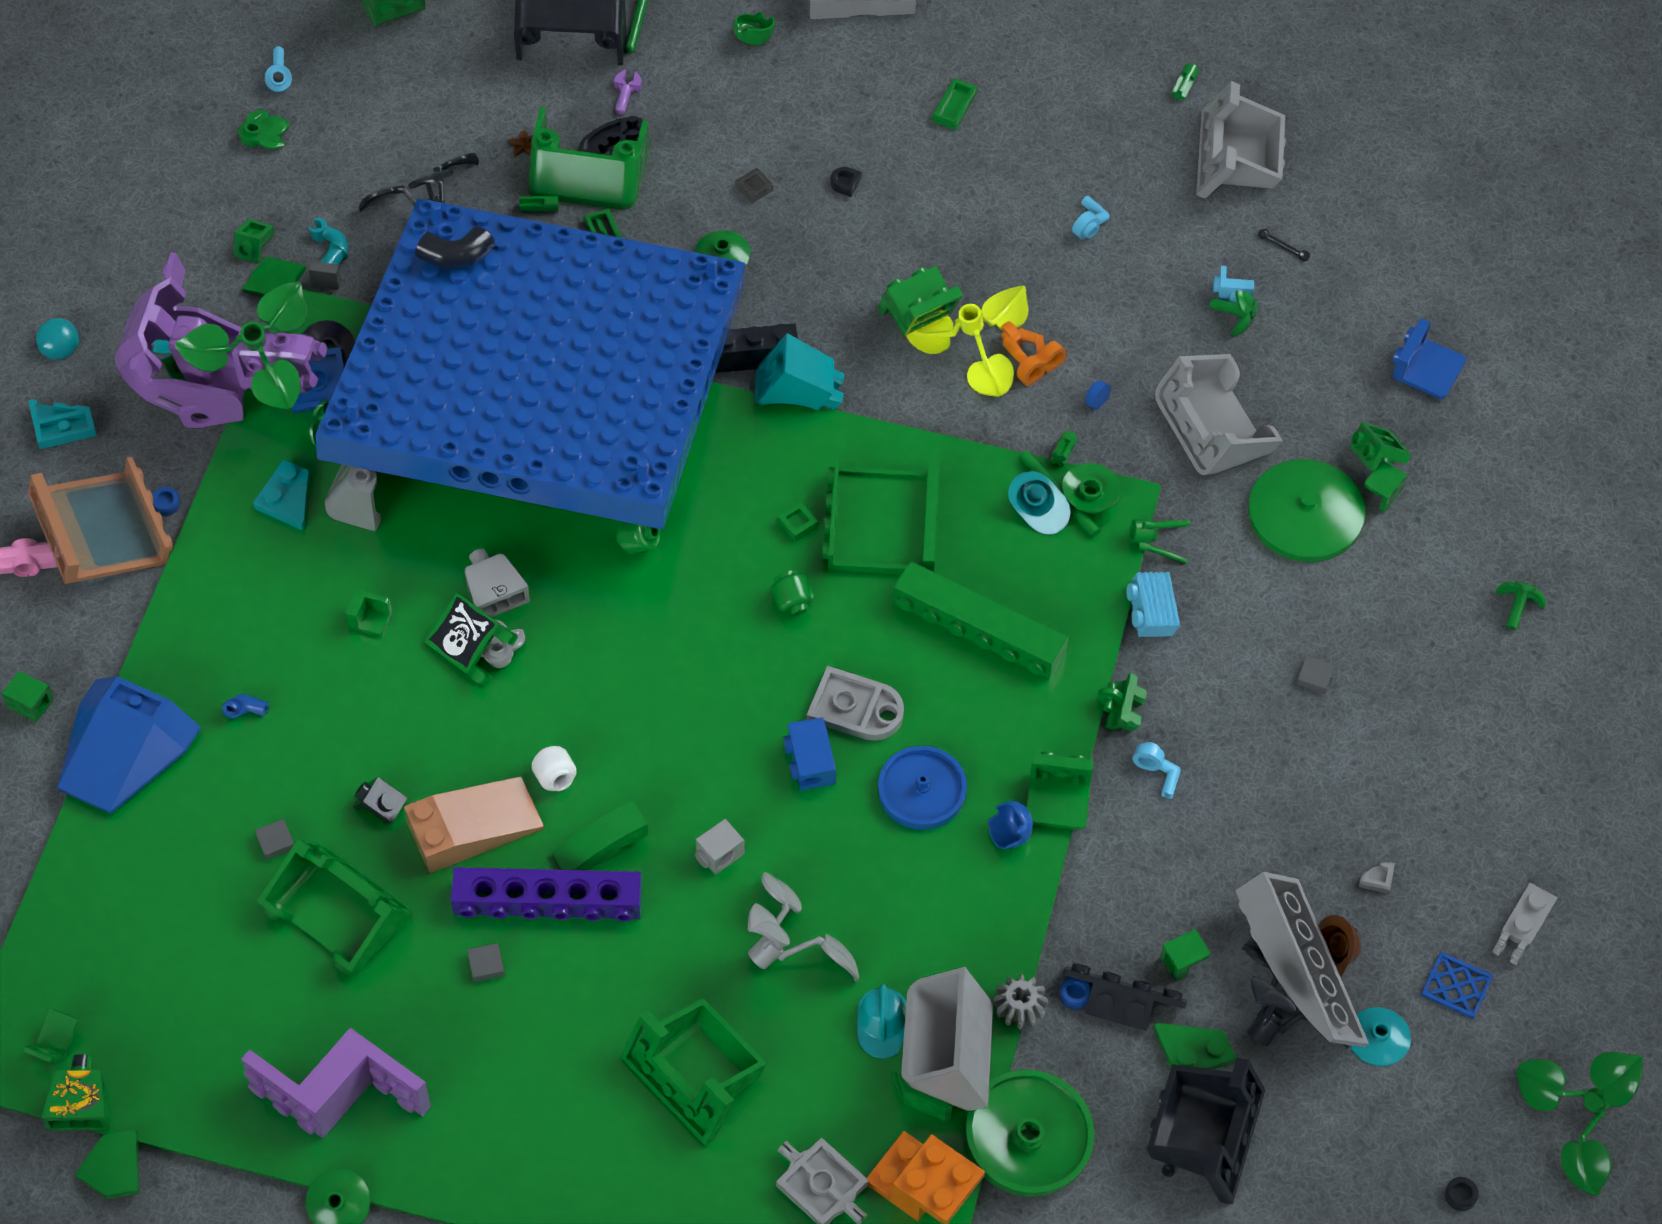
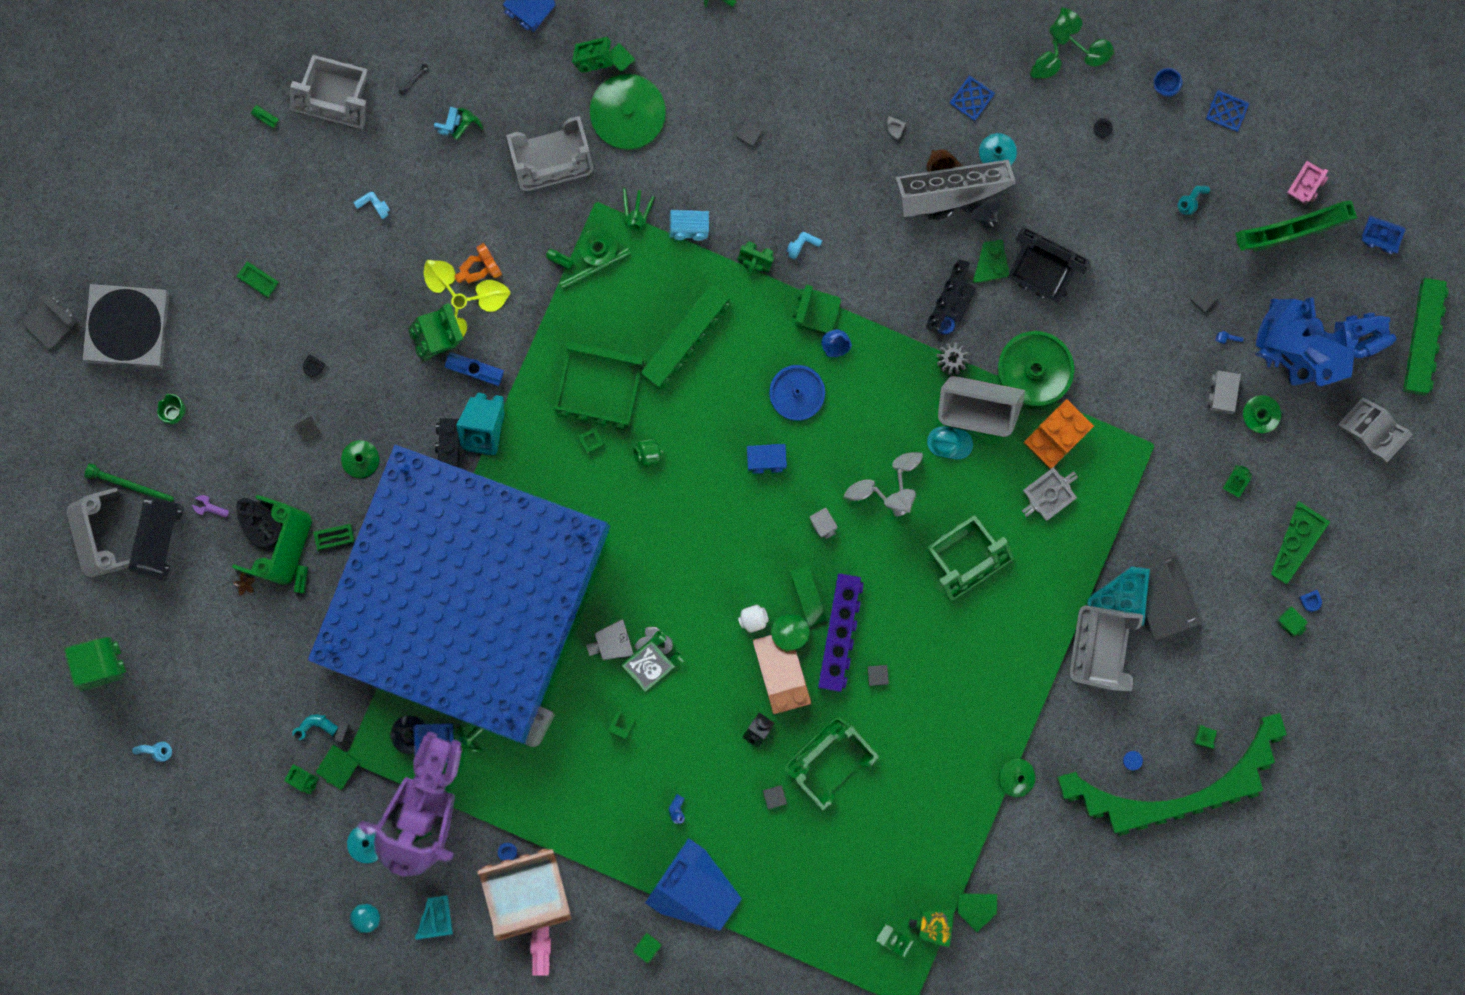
camera: 85 degrees left, 25 degrees up
(263, 130) = (204, 762): green plate -> none
(277, 383) = (464, 767): green plant -> none
(285, 495) = (519, 771): teal wing -> none
(336, 1083) = (952, 771): medium lavender bracket -> none
(441, 172) = (298, 650): black plant -> none
(457, 253) = (374, 636): black cylinder -> none
(538, 823) = (790, 632): none -> green dish
(855, 705) = (731, 425): light grey tile -> none
(876, 376) = (462, 364): none -> blue piece
(1039, 502) = (604, 282): teal piece -> none
(1098, 394) = (520, 228): blue tile -> none
(1183, 953) = (933, 254): green panel -> none
(1525, 921) = (937, 47): light grey hinge -> none

